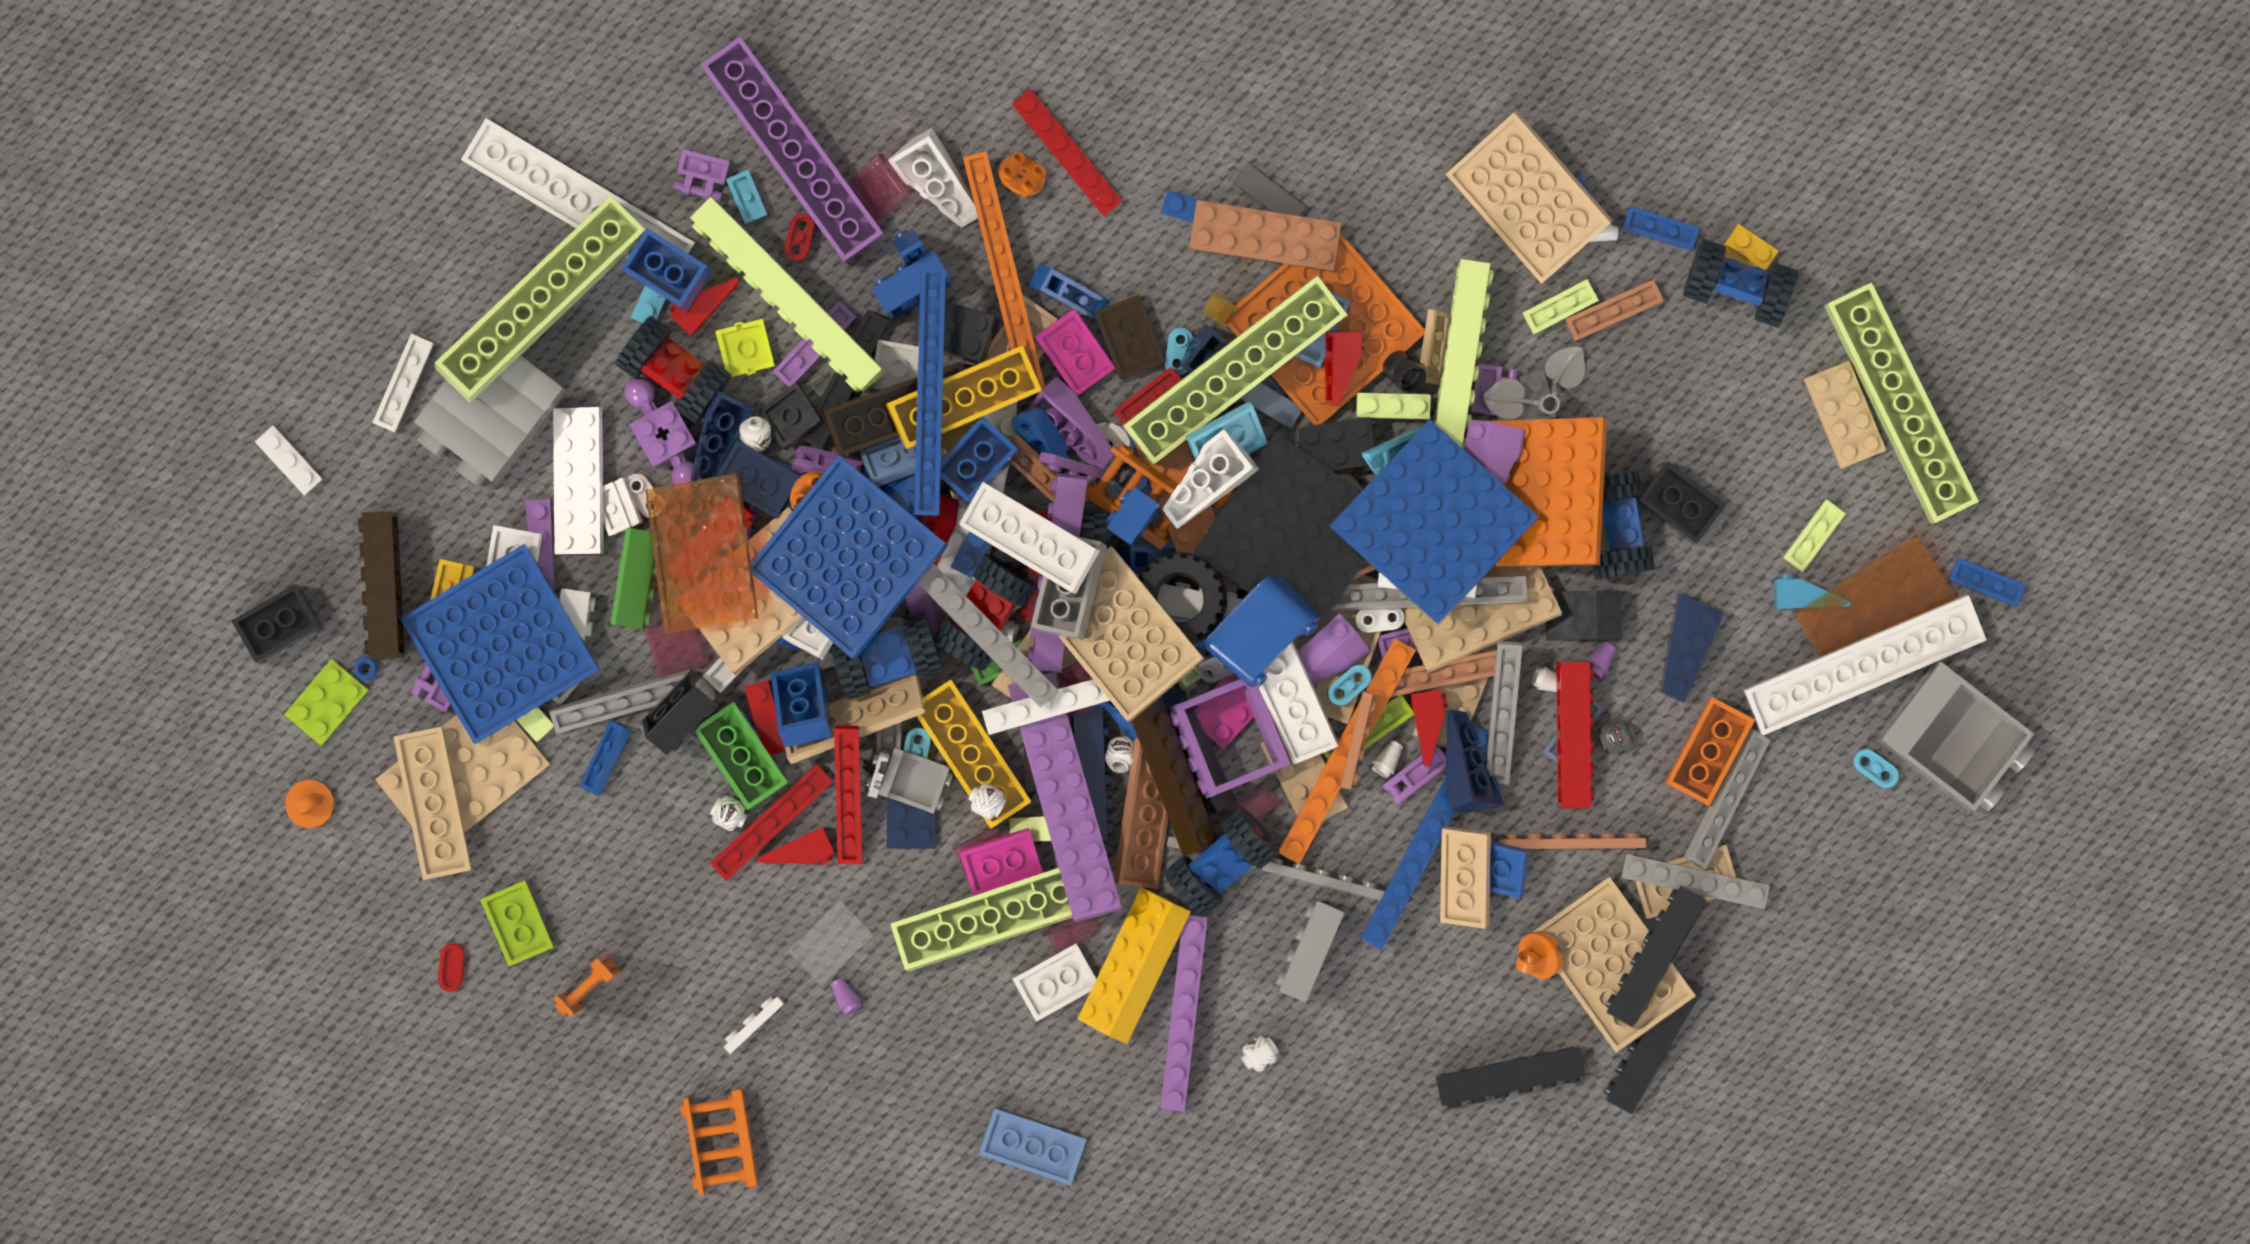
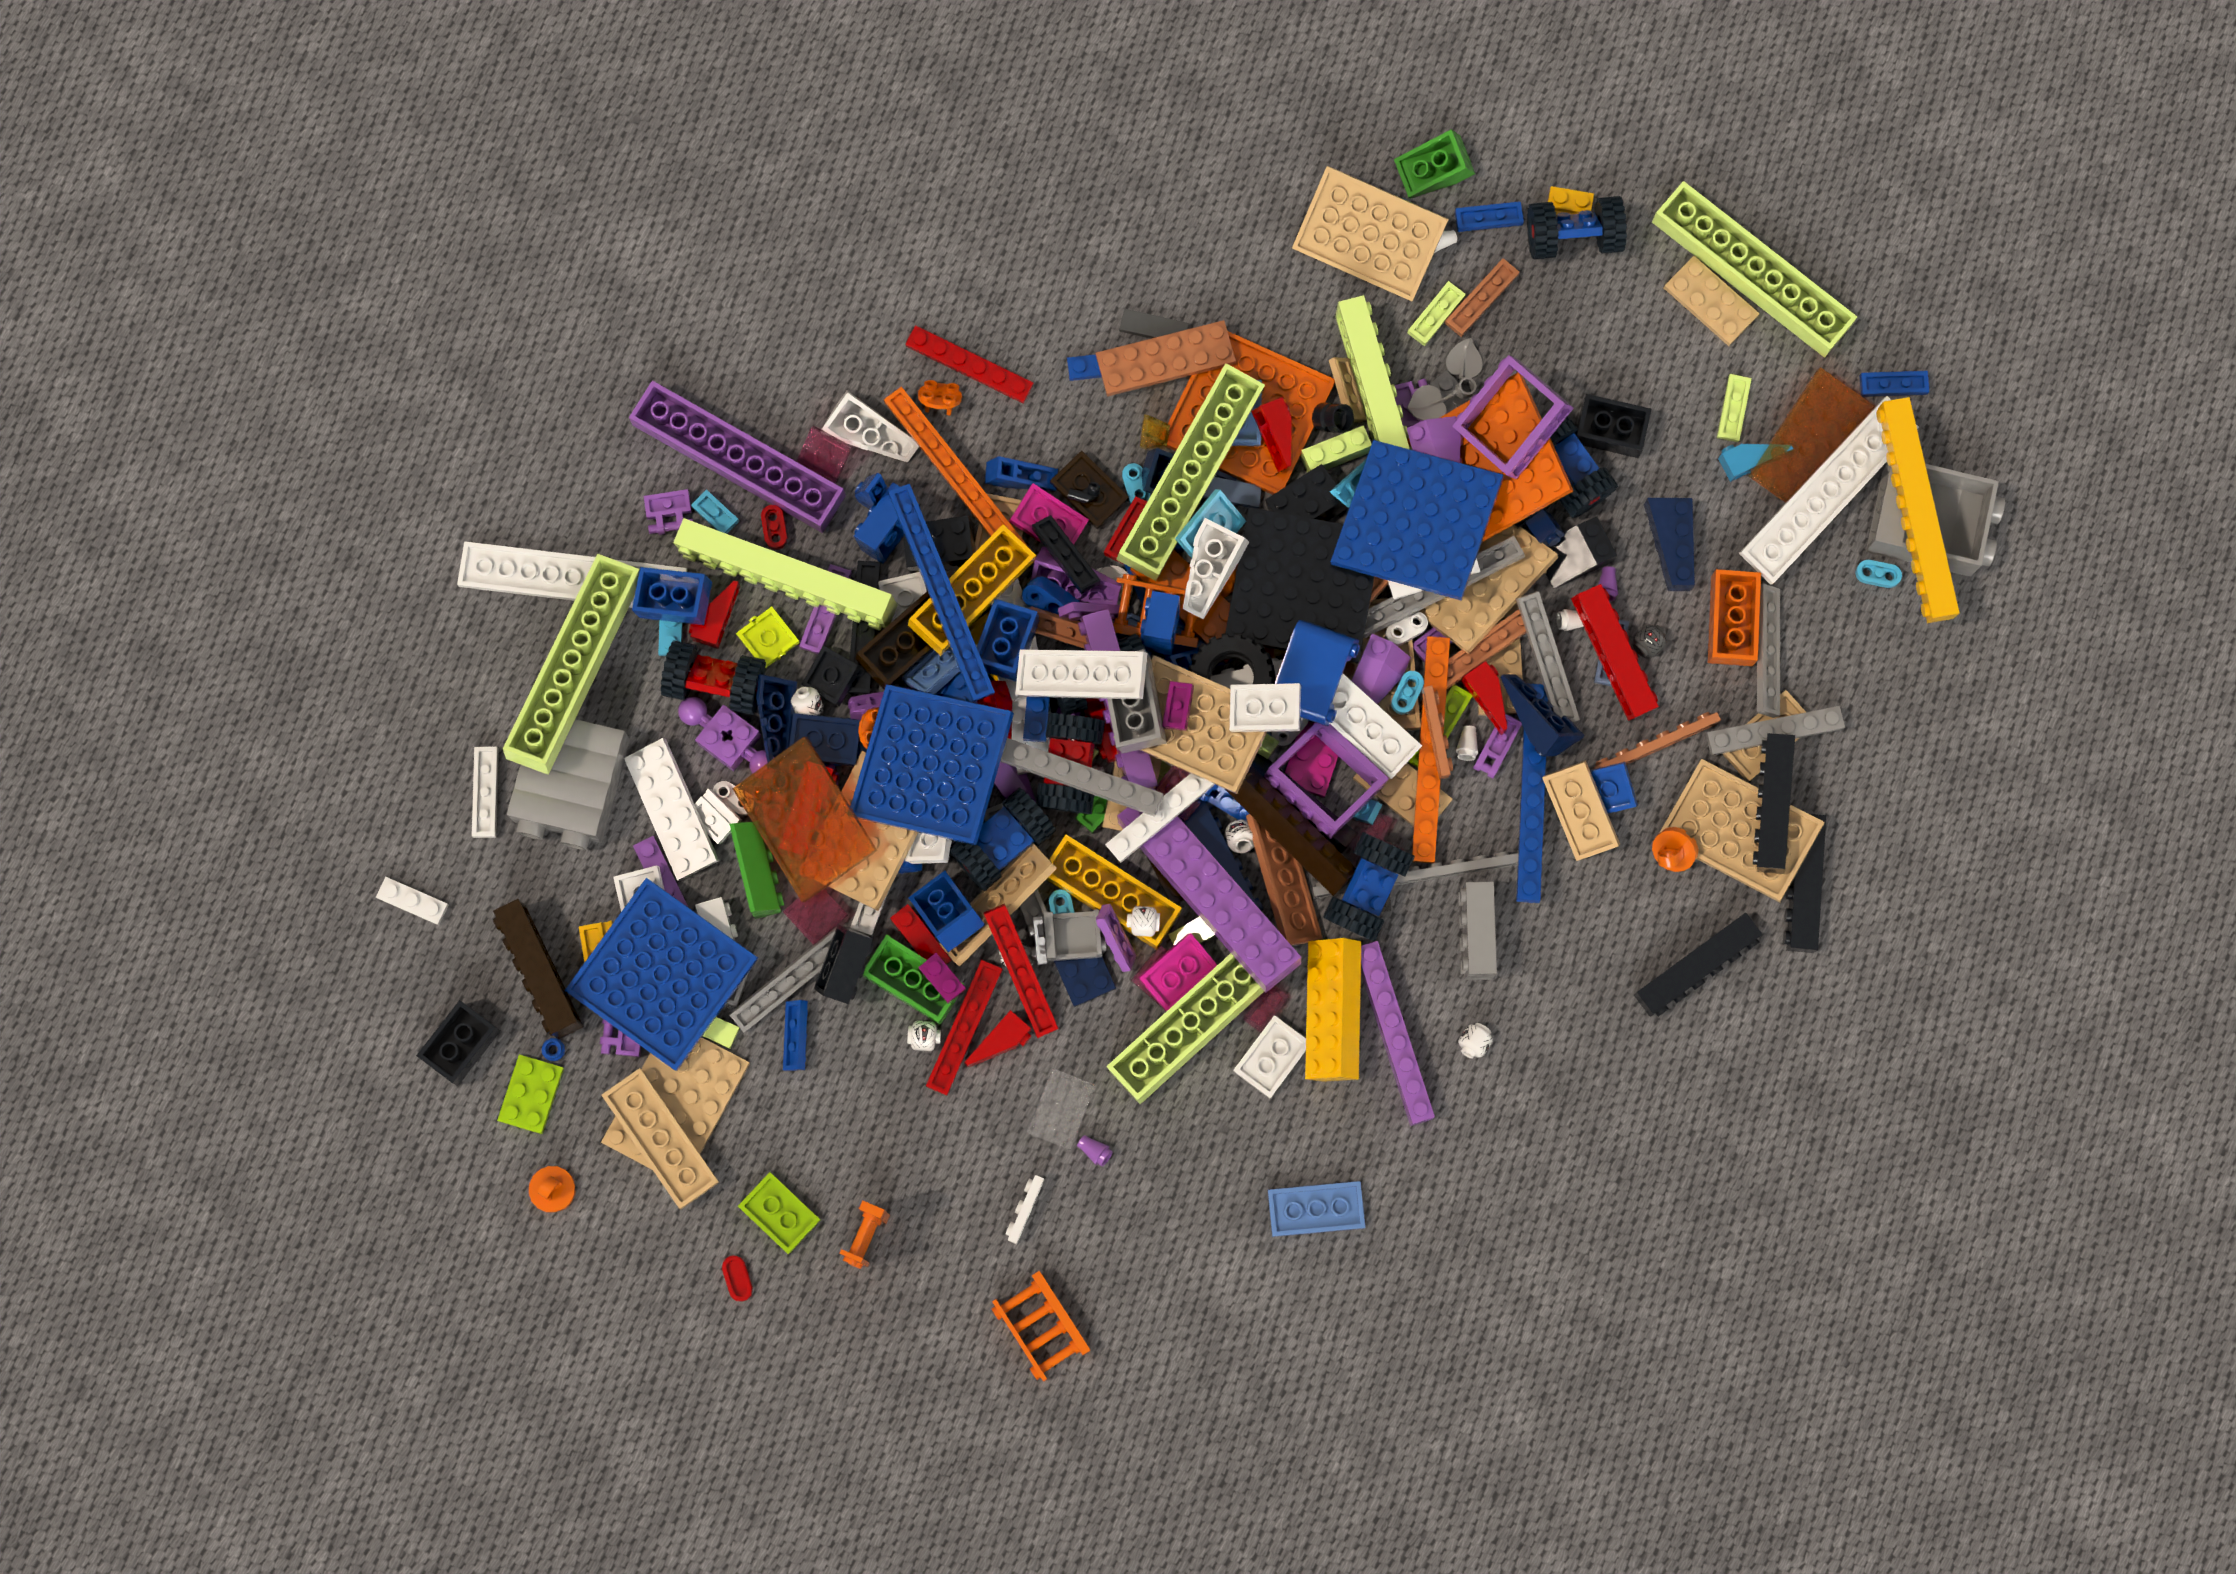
camera: 25 degrees left, 10 degrees down
(768, 769) = (942, 978): none -> magenta plate
(954, 803) = (1116, 937): none -> medium lavender plate
(1073, 399) = (1066, 554): none -> black tile
(1110, 610) = (1178, 705): none -> magenta plate
(1124, 343) = (1085, 495): none -> black arm
(1192, 653) = (1265, 707): none -> white plate
(1259, 785) = (1368, 812): none -> medium azure plate
(1563, 581) = (1545, 528): none -> dark blue brick
(1587, 497) = (1538, 436): none -> medium lavender window
(1630, 150) = (1434, 165): none -> bright green slope
(1937, 729) = (1917, 510): none -> yellow brick

